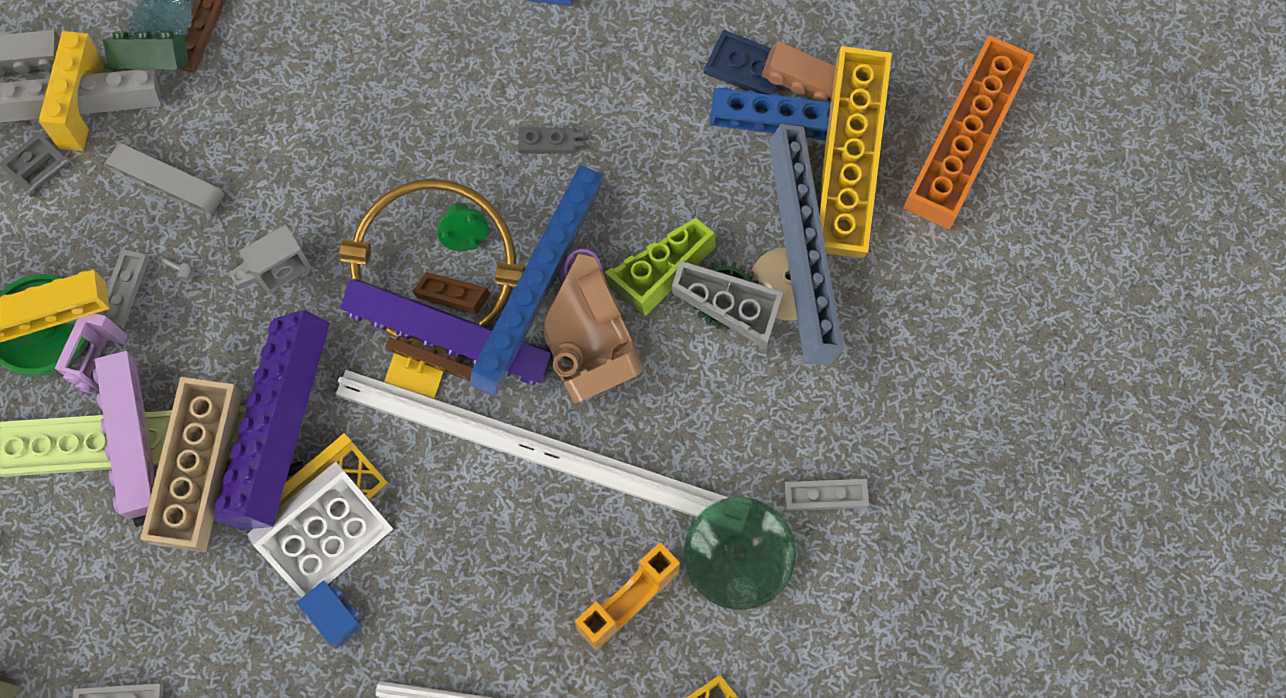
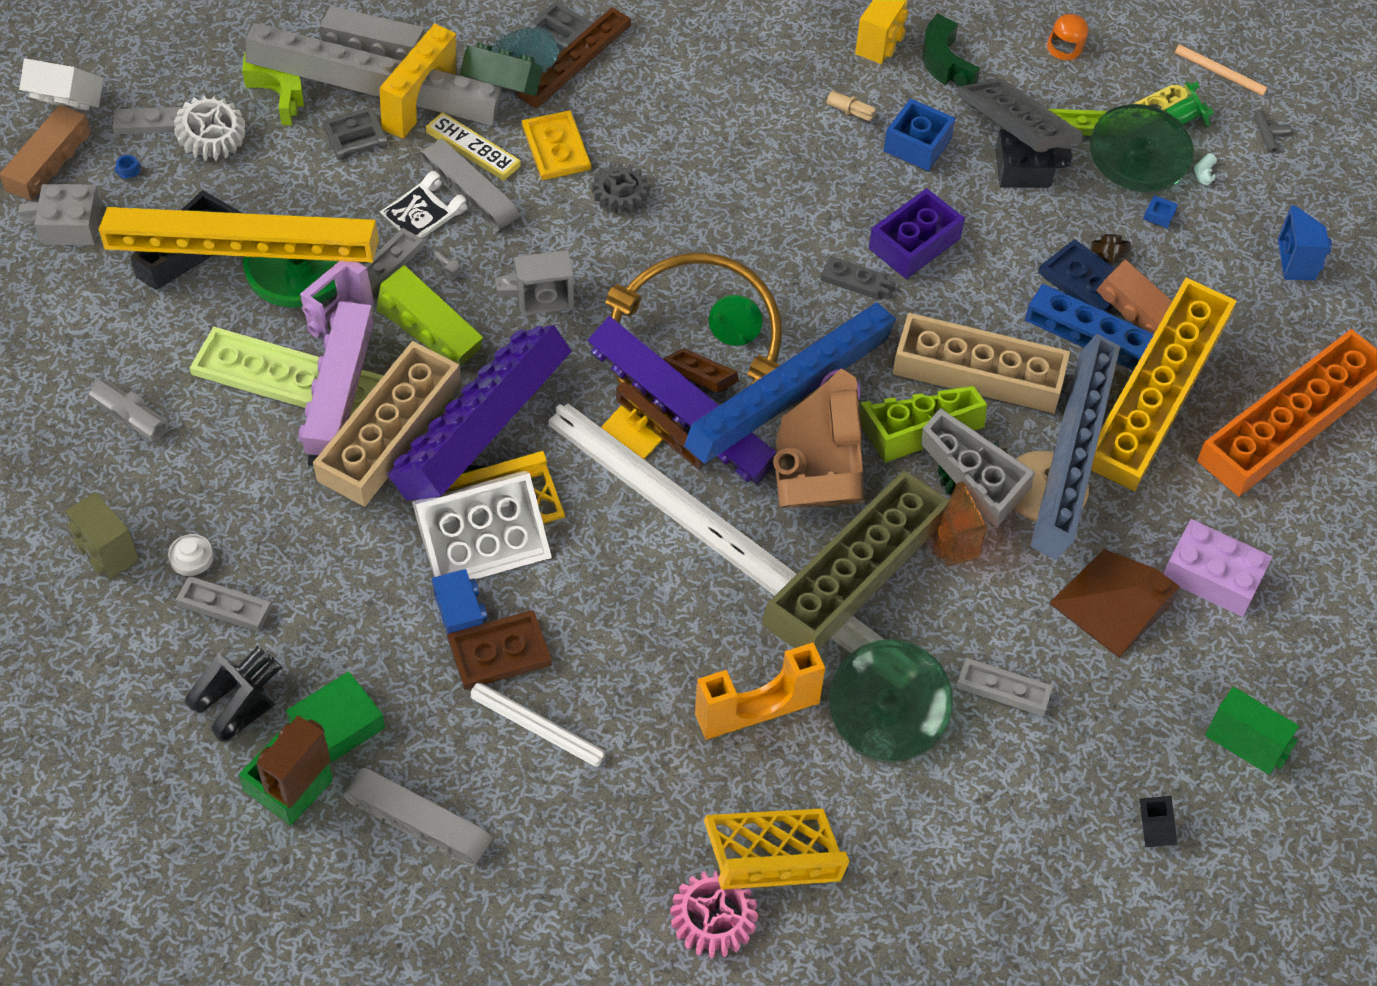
camera: 20 degrees right, 15 degrees down
(66, 665) = (190, 555): none -> white plate
(130, 223) = (421, 210): none -> flag
(151, 135) = (473, 146): none -> tile
(184, 336) = (427, 317): none -> lime wedge
(228, 104) = (556, 145): none -> yellow tile
(308, 131) = (620, 188): none -> dark grey gear
(383, 642) = (499, 649): none -> reddish brown plate
(586, 77) = (916, 233): none -> dark purple brick
(661, 437) = (855, 563): none -> olive brick
(691, 187) = (990, 362): none -> tan brick
(735, 361) = (960, 529): none -> clear orange slope
(757, 26) = (1110, 247): none -> dark brown plate
(885, 372) = (1116, 600): none -> reddish brown slope
(958, 309) = (1217, 567): none -> lavender brick
(999, 572) = (1158, 821): none -> black brick
(1044, 457) = (1253, 731): none -> green brick

